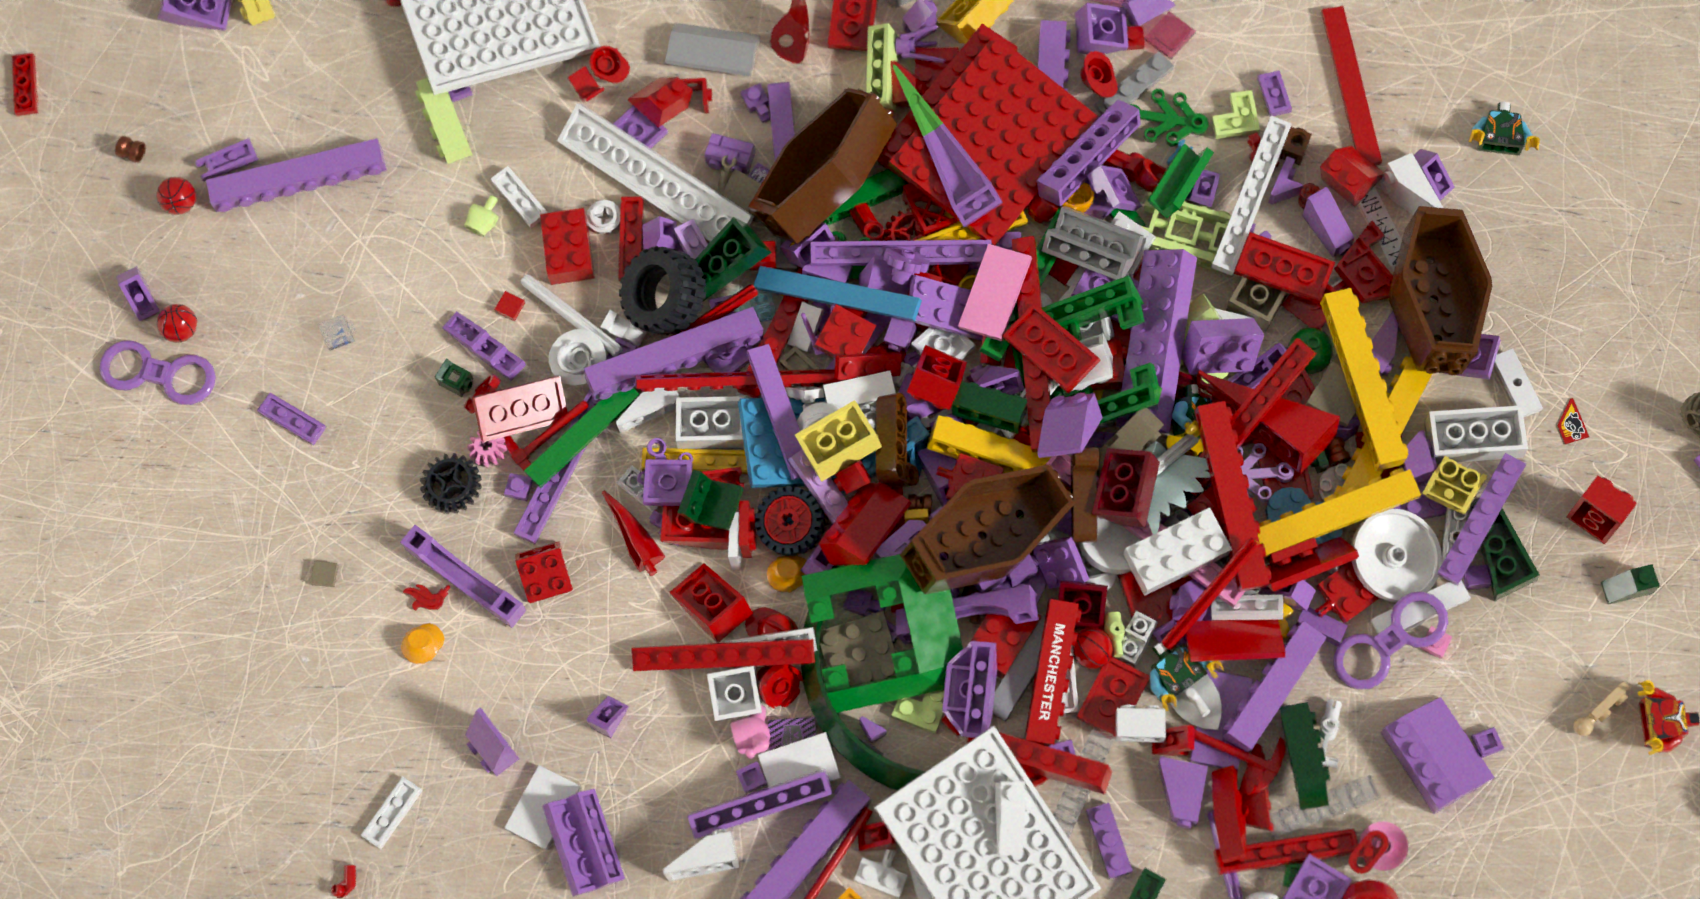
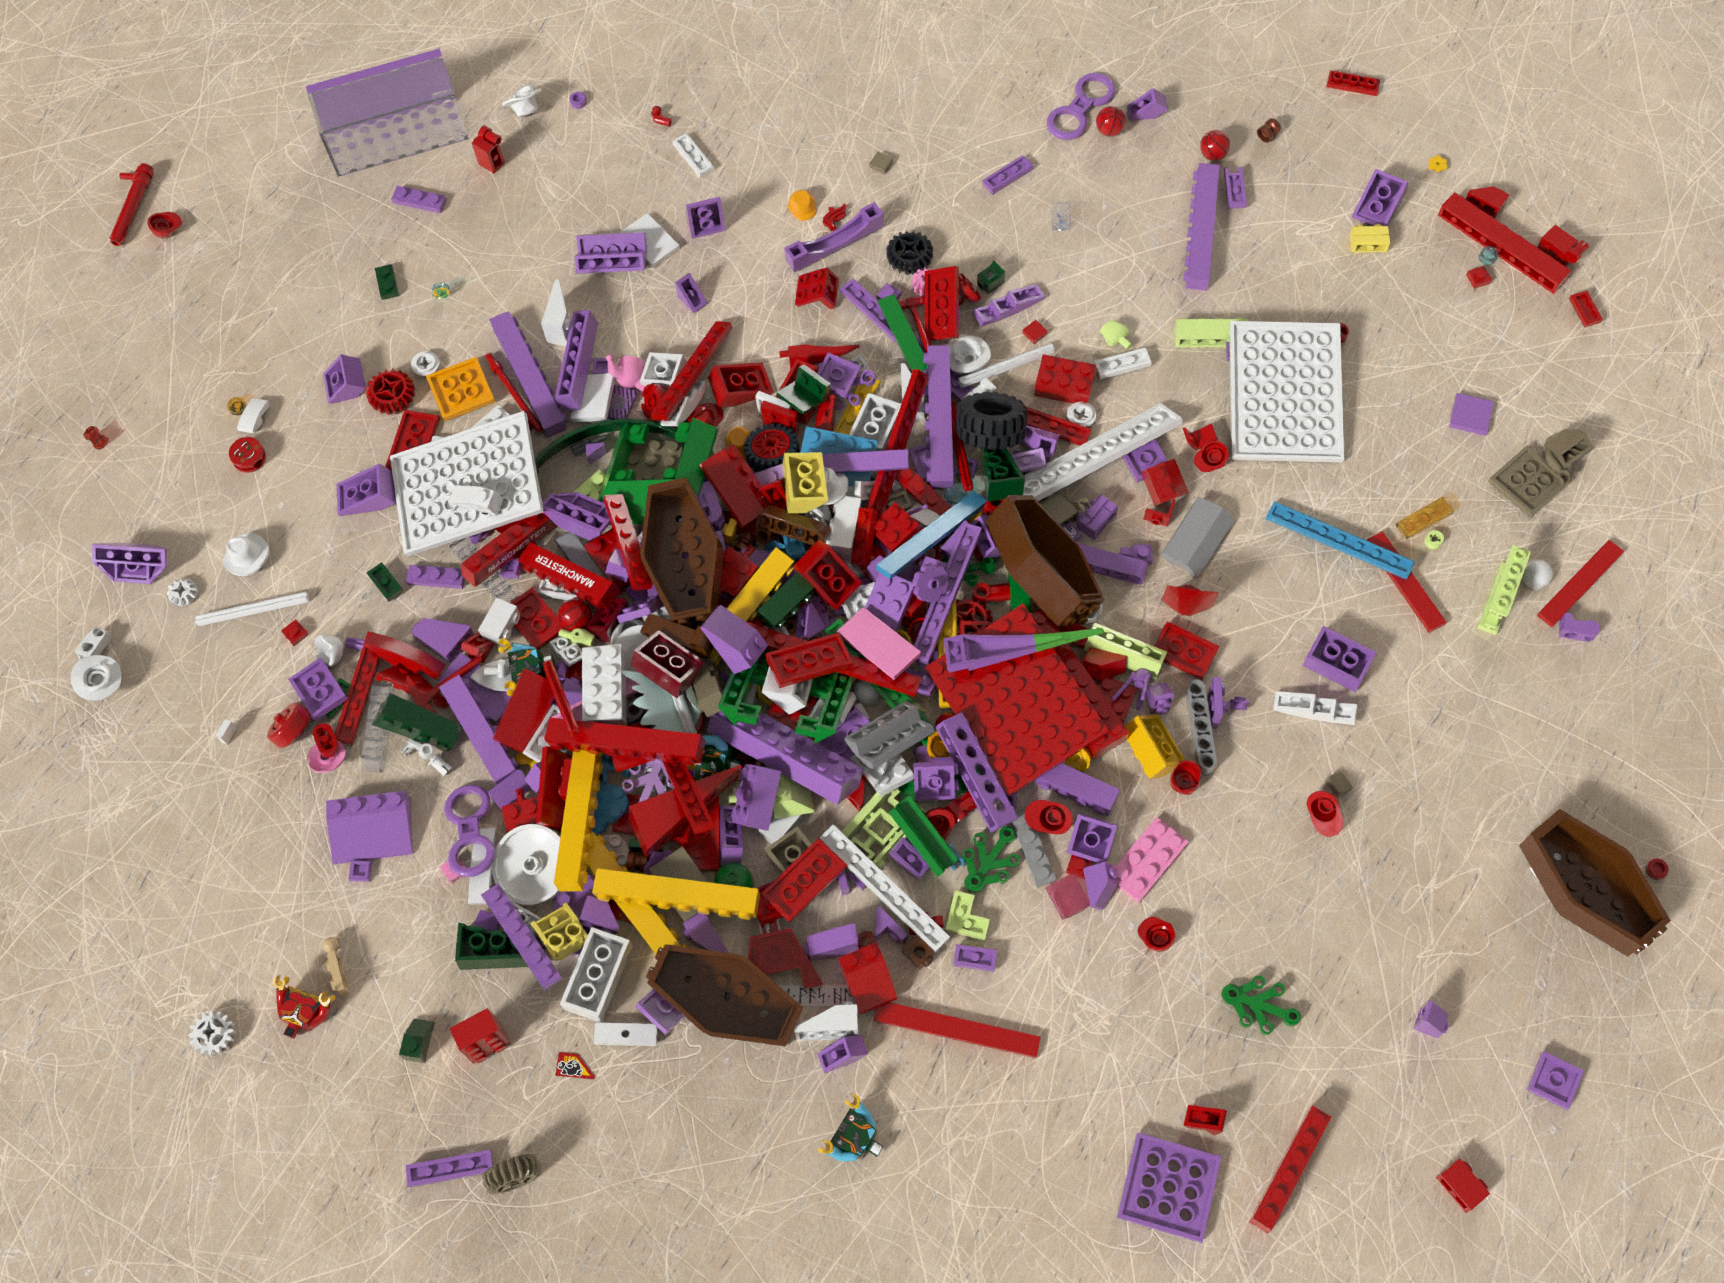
camera: 110 degrees right, 5 degrees down
(993, 605) = (627, 541): none -> red plate

